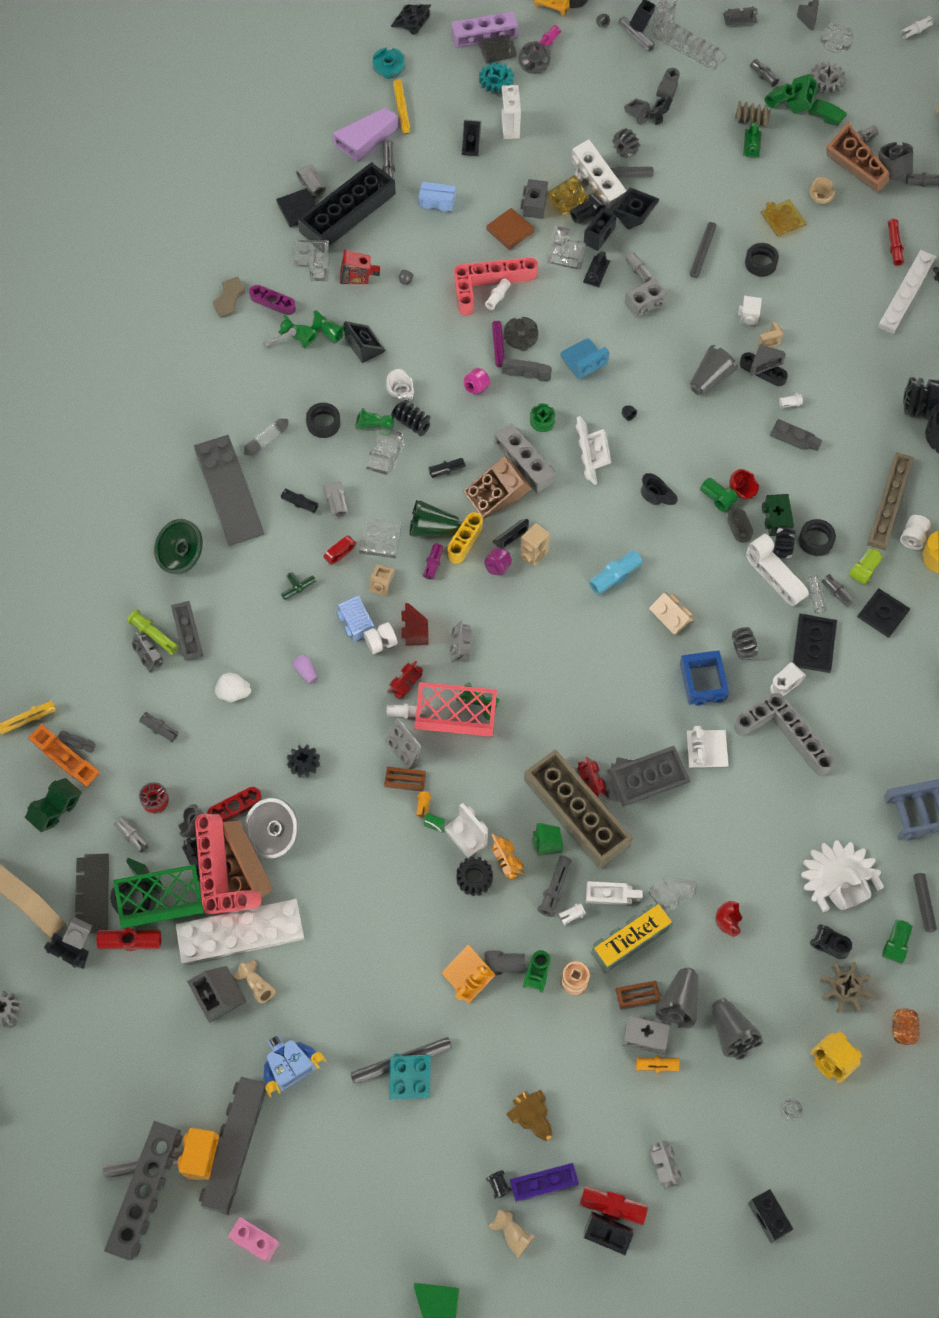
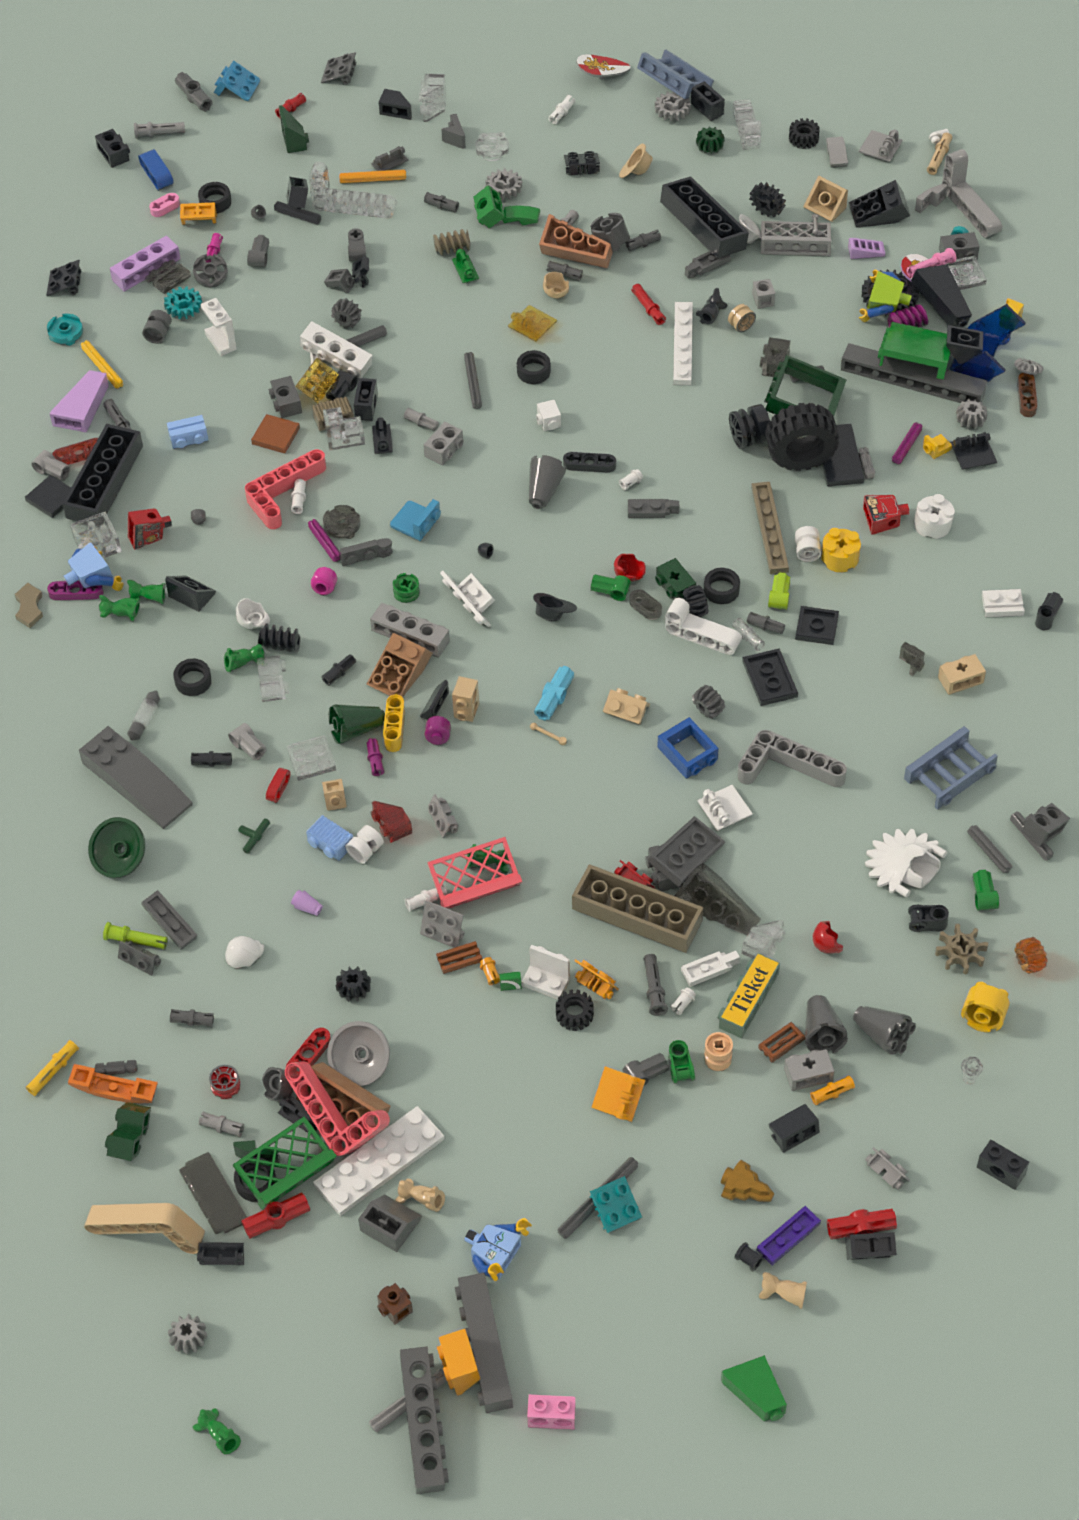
camera: 25 degrees left, 10 degrees down
(77, 933) = (223, 1230): light grey brick -> none
(178, 1077) = (394, 1303): none -> reddish brown brick
(291, 288) = (91, 569): none -> light blue torso
(292, 331) = (115, 609): light grey hinge -> none
(328, 180) = (65, 451): none -> clear red beam
(400, 685) = (405, 877): red hinge -> none
(462, 90) = (156, 326): none -> dark grey wheel
(471, 137) = (190, 365): black slope -> none
(547, 839) = (624, 947): green slope -> none
(575, 225) = (346, 409): none -> dark tan brick
(582, 59) = (258, 254): none -> dark grey piece
(600, 619) = (562, 740): none -> tan hinge
(603, 1083) = (794, 1128): none -> black hinge
(634, 207) = (388, 367): black slope -> none
(650, 830) = (718, 900): none -> clear smoke wedge
(718, 25) = (371, 176): none -> light orange axle
(766, 359) = (589, 450): dark grey slope -> none
(772, 337) = (581, 432): tan bracket -> none
(779, 95) = (469, 215): green piece -> none
(787, 679) = (764, 716): white piece -> none
(838, 180) = (565, 270): none -> dark grey pin
(915, 83) = (574, 160): none -> black hinge

